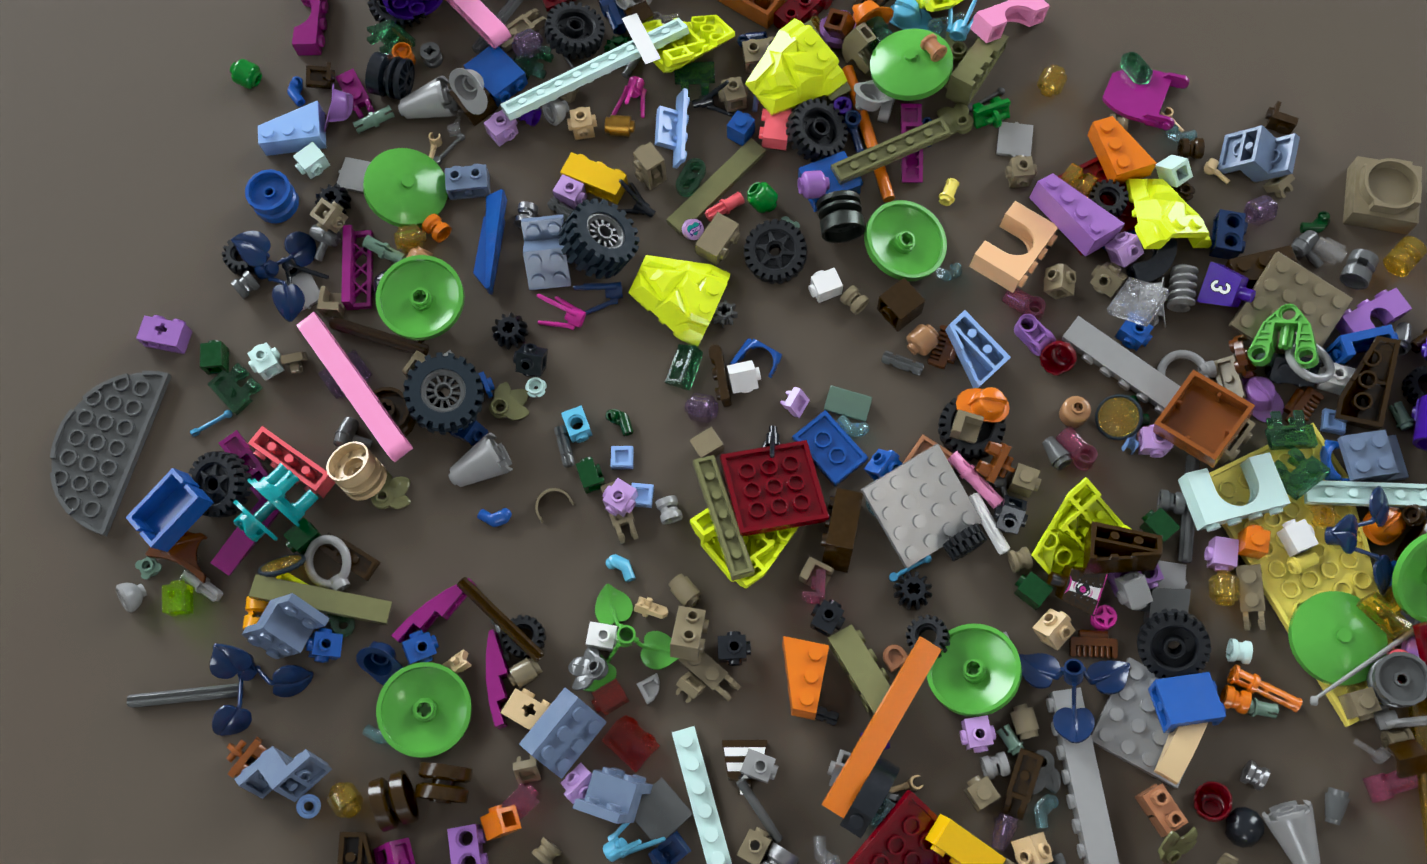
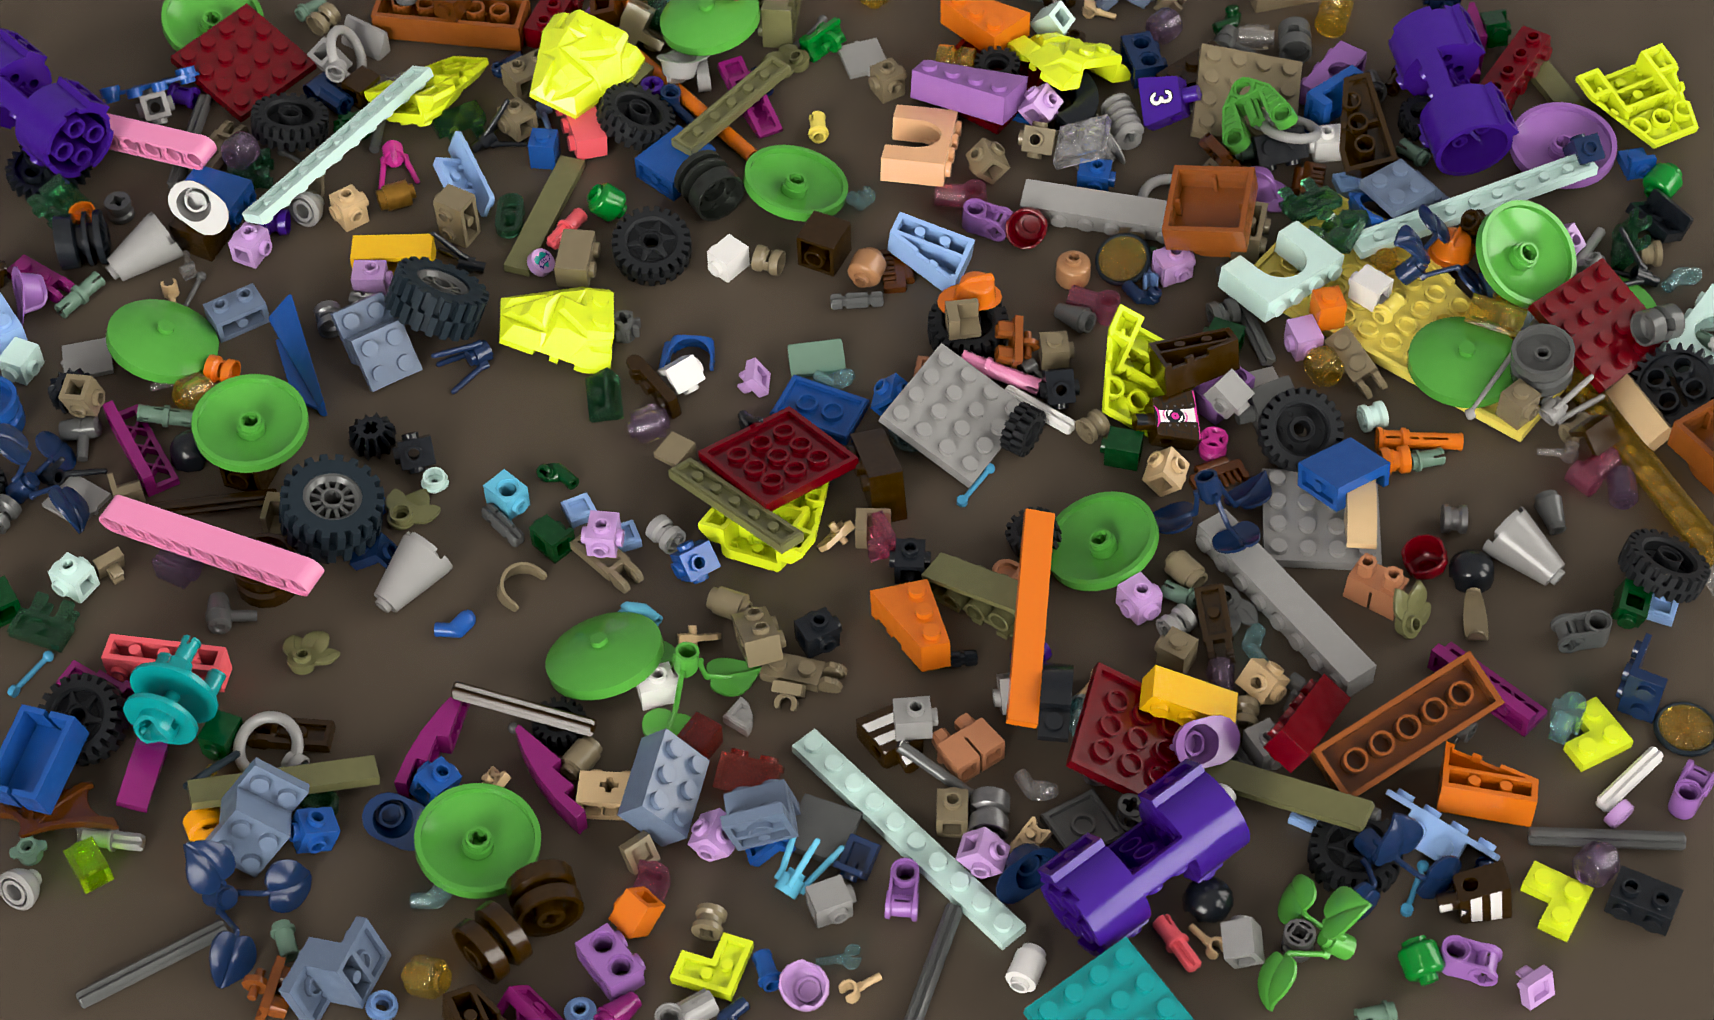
camera: 30 degrees left, 20 degrees down
(272, 721) = (283, 933): none -> sand green pin
(356, 471) = (258, 634): tan wheel -> none
(573, 314) = (443, 394): dark pink plant -> none
(577, 598) = (604, 656): none -> bright green dish
(588, 668) = (657, 716): dark grey plate -> none
(641, 38) = (379, 96): white sticker -> none
(676, 545) = (694, 561): none -> brick
(790, 565) = (837, 533): none -> tan piece
(801, 794) = (970, 749): none -> nougat hips
(813, 184) = (661, 161): medium lavender head -> none
(914, 598) = (991, 500): black gear -> none
(1117, 456) = (1138, 296): none -> dark blue arm
(1404, 811) = (1622, 487): none -> brick

